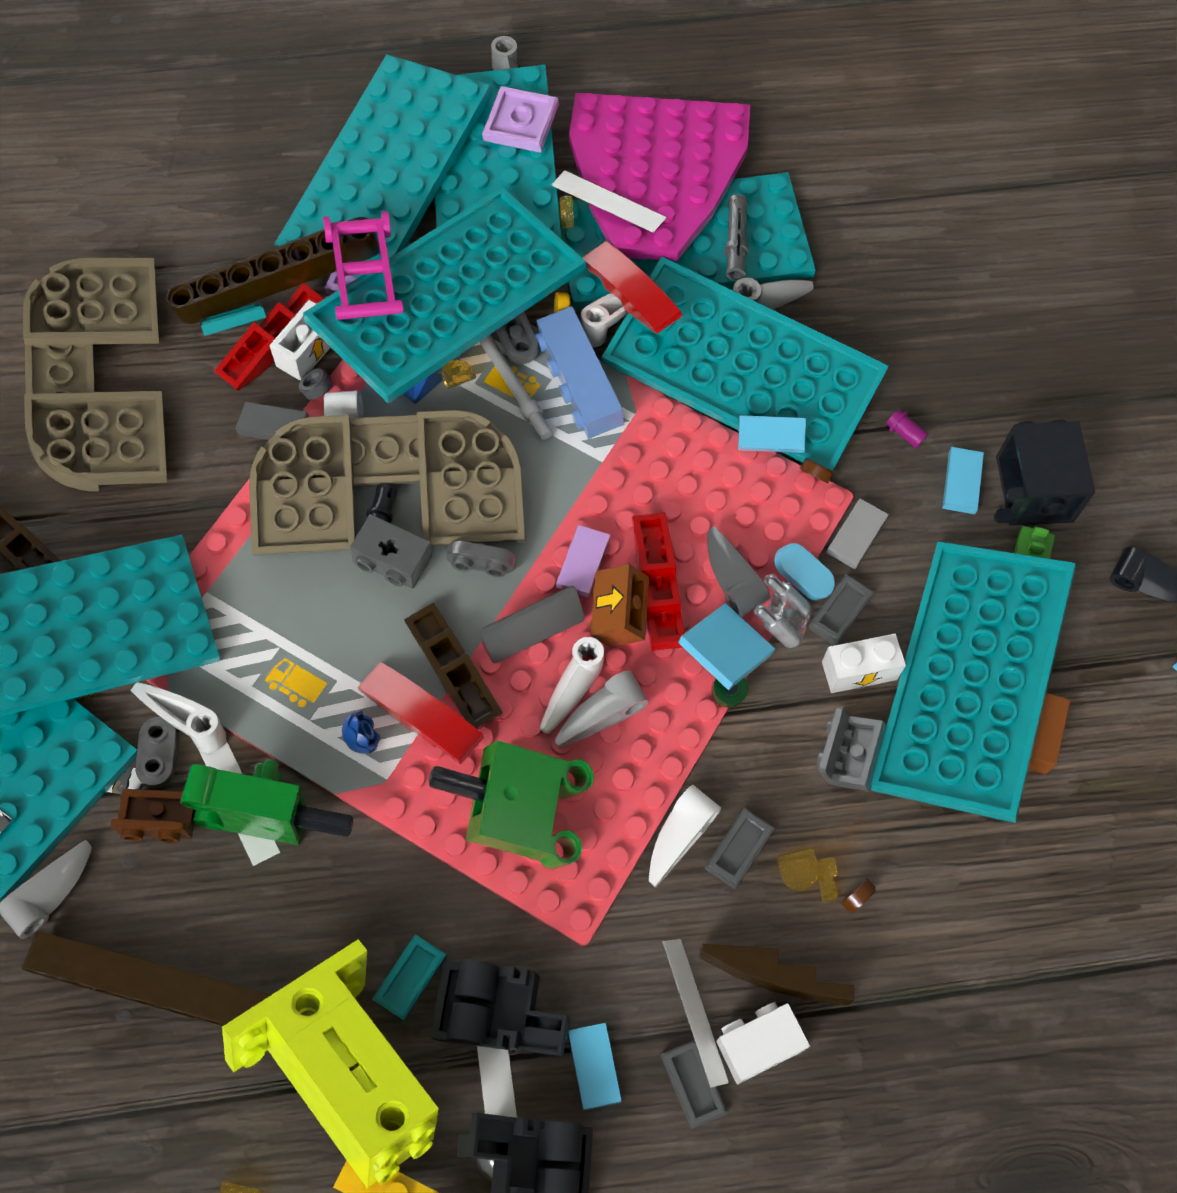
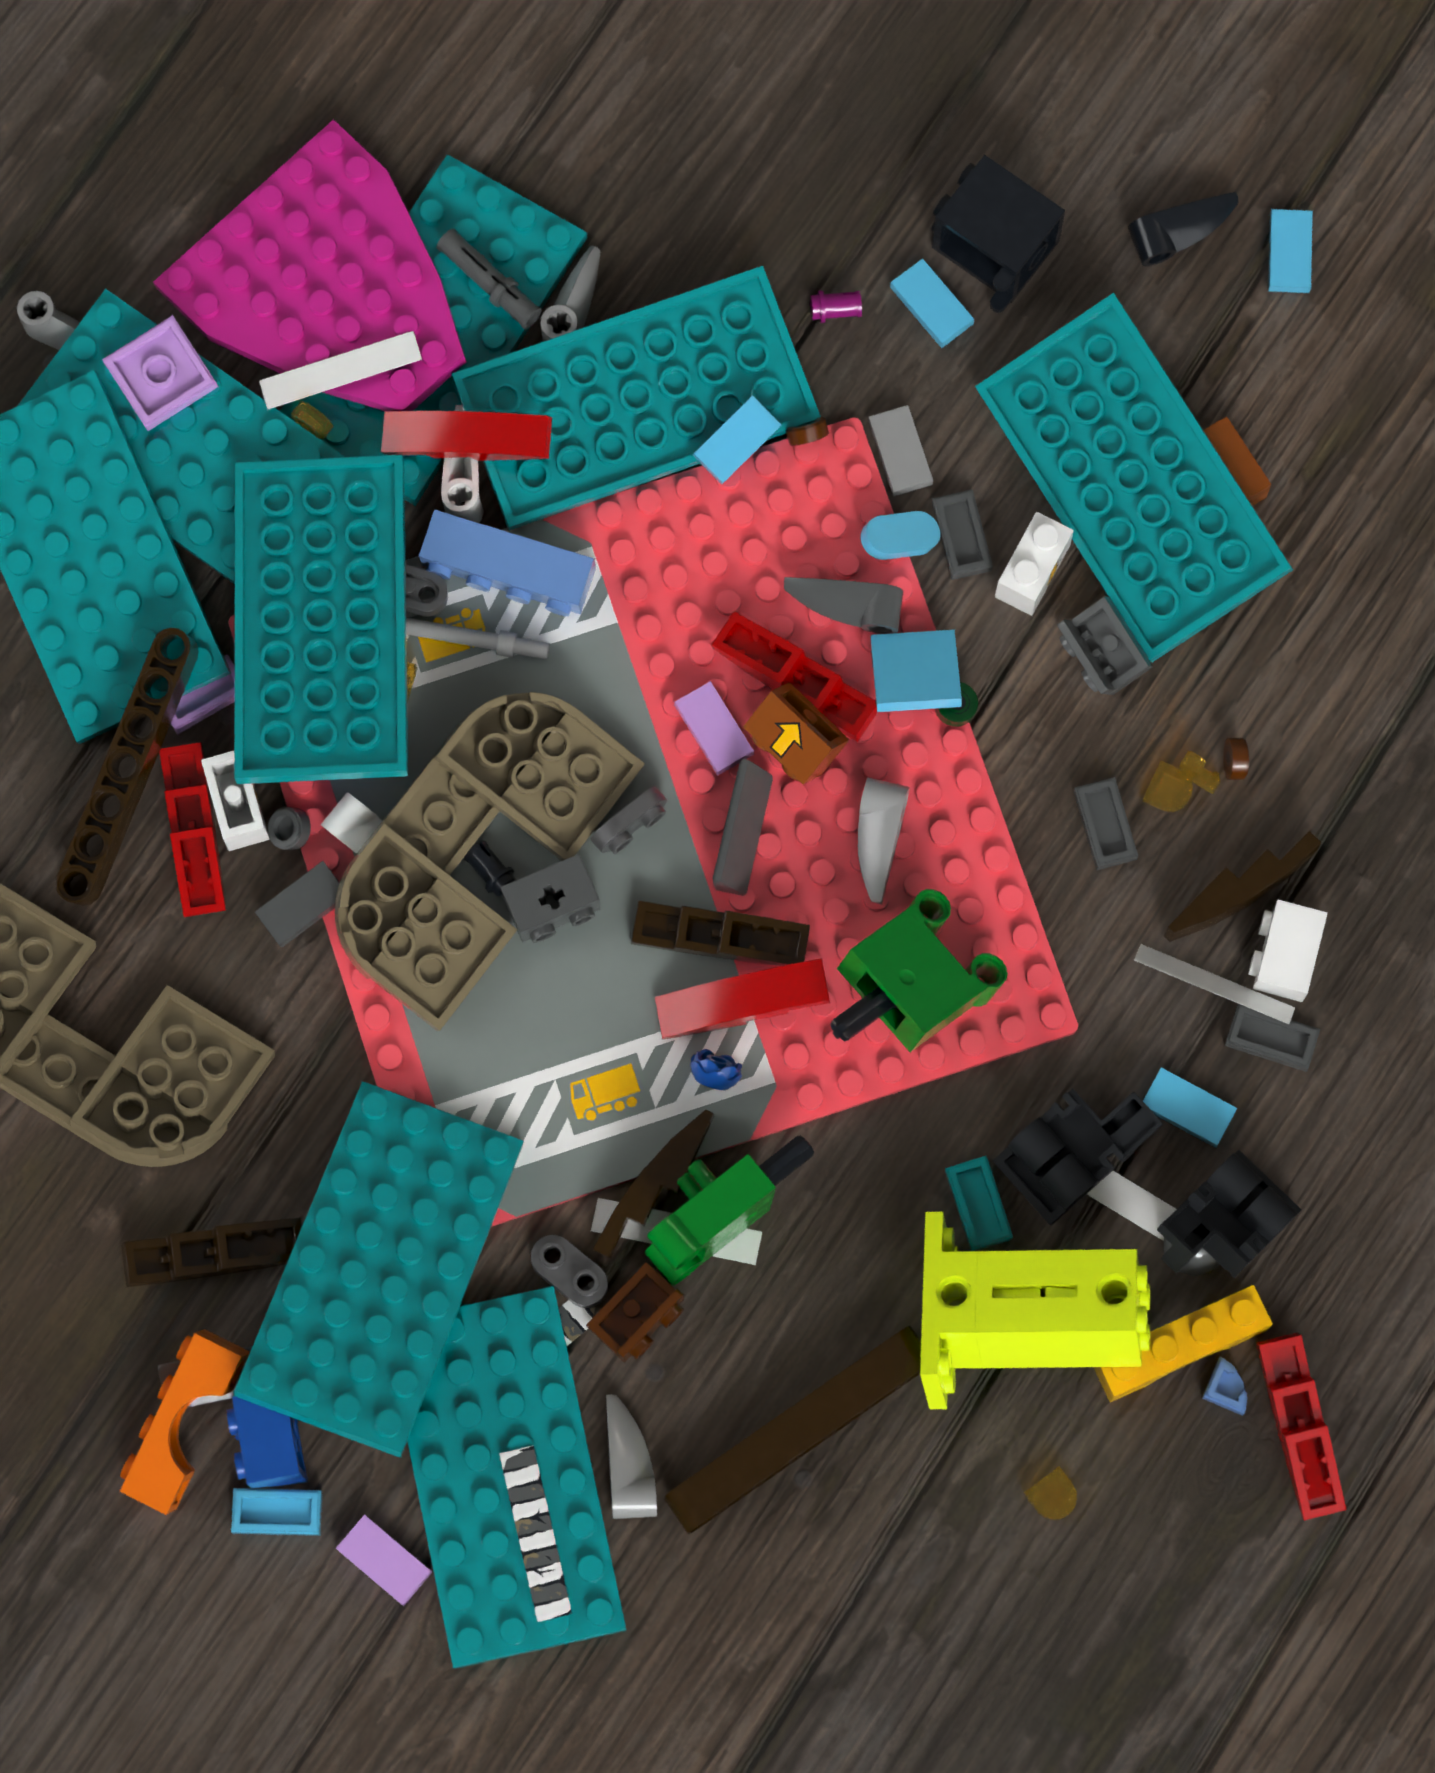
camera: 45 degrees left, 10 degrees up
(184, 715) = (555, 1218): white piece -> none
(232, 318) = (137, 852): teal tile -> none
(247, 752) = (658, 1174): none -> dark brown slope
(382, 227) = (197, 622): dark pink piece -> none
(561, 301) = (416, 519): yellow tile -> none
(574, 682) = (829, 839): white piece -> none
(683, 827) = (1048, 861): white piece -> none
(786, 613) = (928, 589): clear piece -> none
(1034, 542) = (1053, 303): bright green tile -> none

